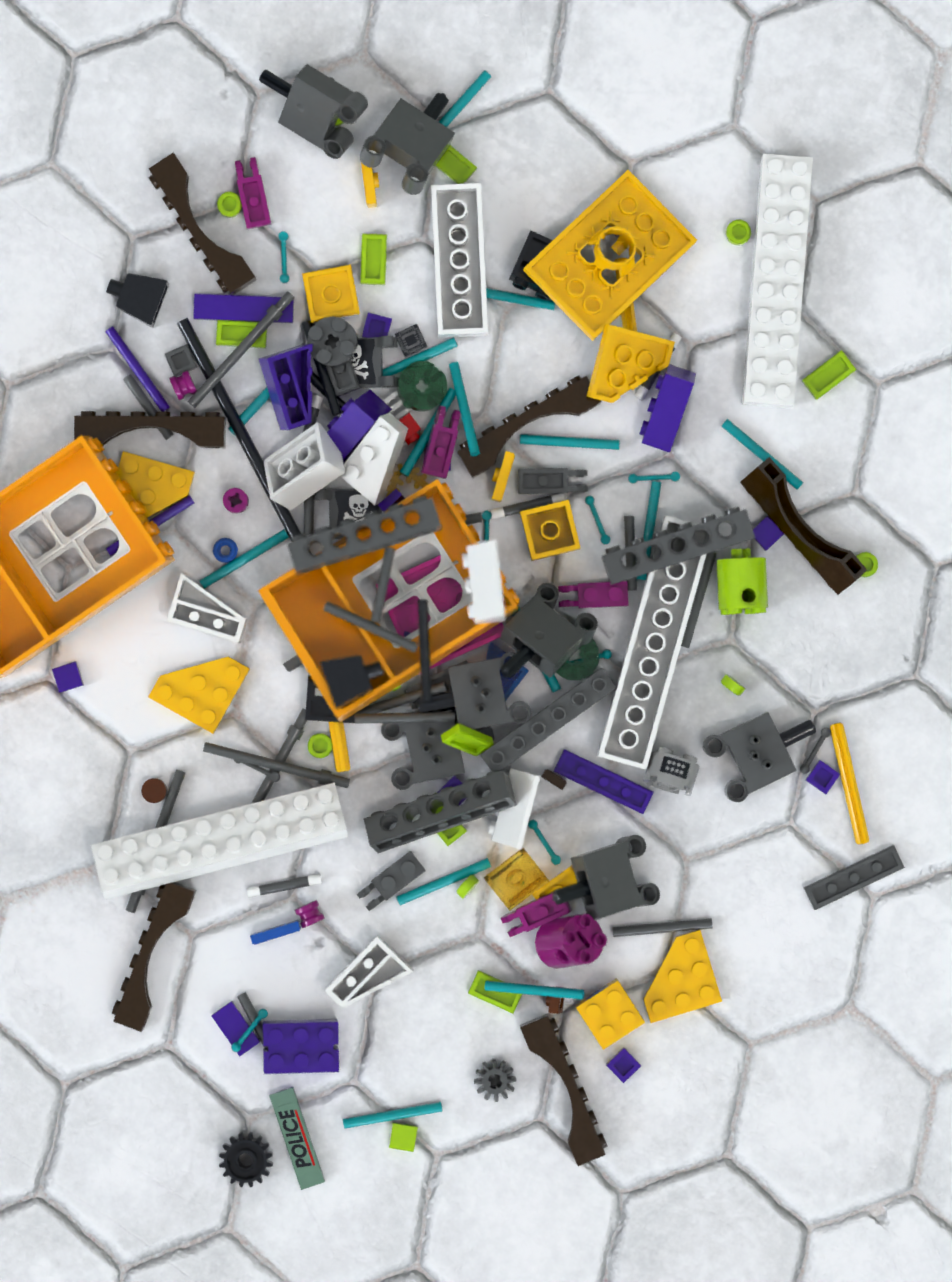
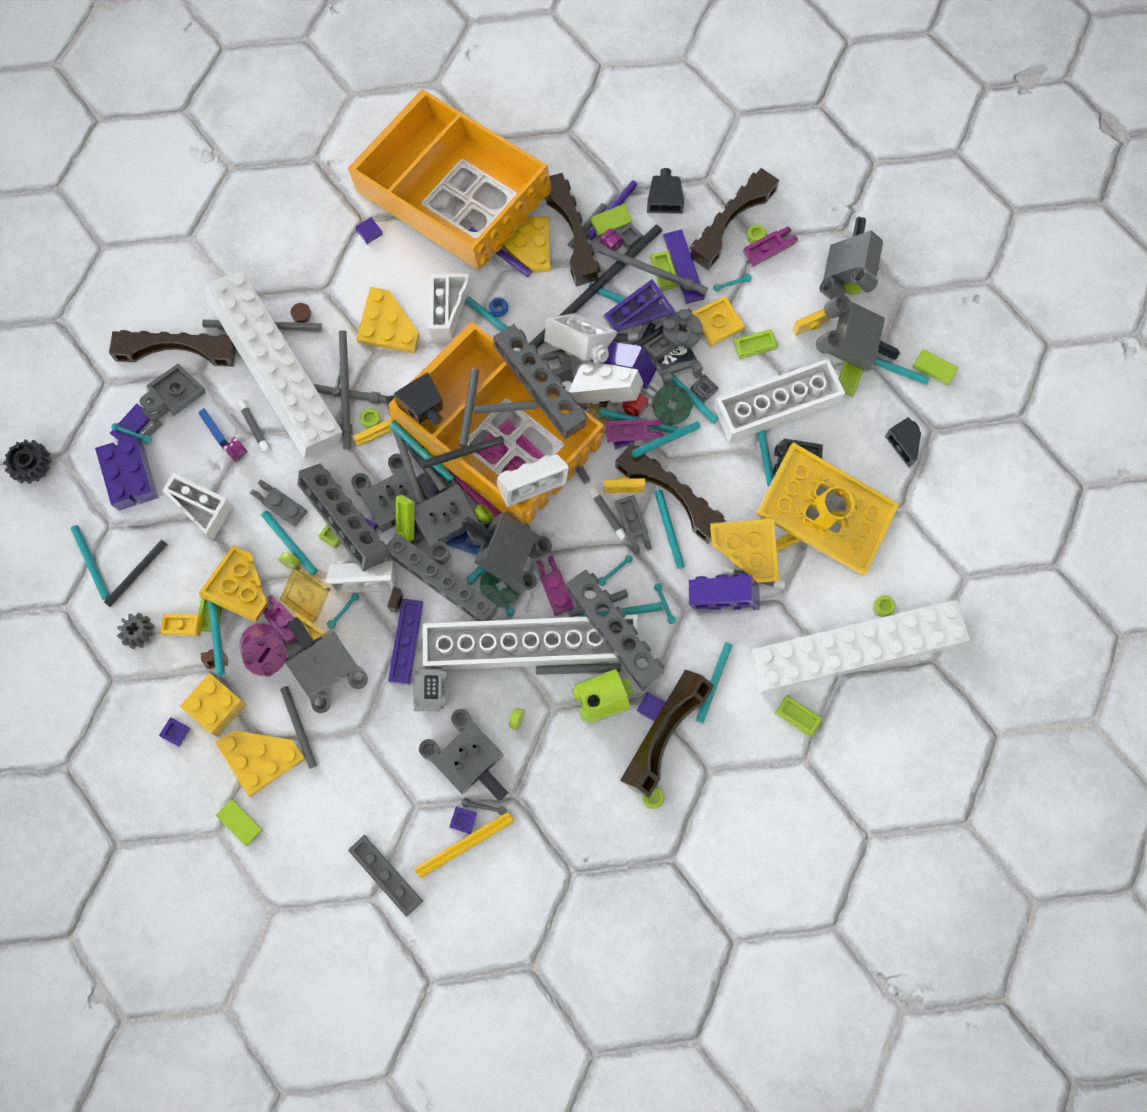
camera: 75 degrees right, 15 degrees down
(154, 375) = (612, 218): none -> lime tile
(221, 979) = (164, 399): none -> dark grey plate
(239, 502) = (538, 307): magenta wheel -> none
(297, 1138) = (54, 496): sand green tile -> none
(342, 453) = (599, 353): none -> white plate
(376, 326) = (707, 360): dark purple tile -> none
(386, 699) = (420, 450): none -> teal bar
(403, 1137) = (73, 575): lime tile -> none
(423, 1065) = (112, 598): none -> black bar
(473, 57) = (935, 367): none -> lime tile
(481, 952) = (236, 585): none -> yellow plate
(486, 515) = (588, 485): teal hinge -> none
(488, 649) = (483, 514): none -> lime tile
(504, 1027) = (181, 625): none -> yellow plate
(550, 530) = (593, 532): yellow brick -> none
(554, 130) = (905, 440): none -> black slope
(583, 1138) = (104, 717): dark brown arch -> none
(746, 1019) = (239, 822): none -> lime tile

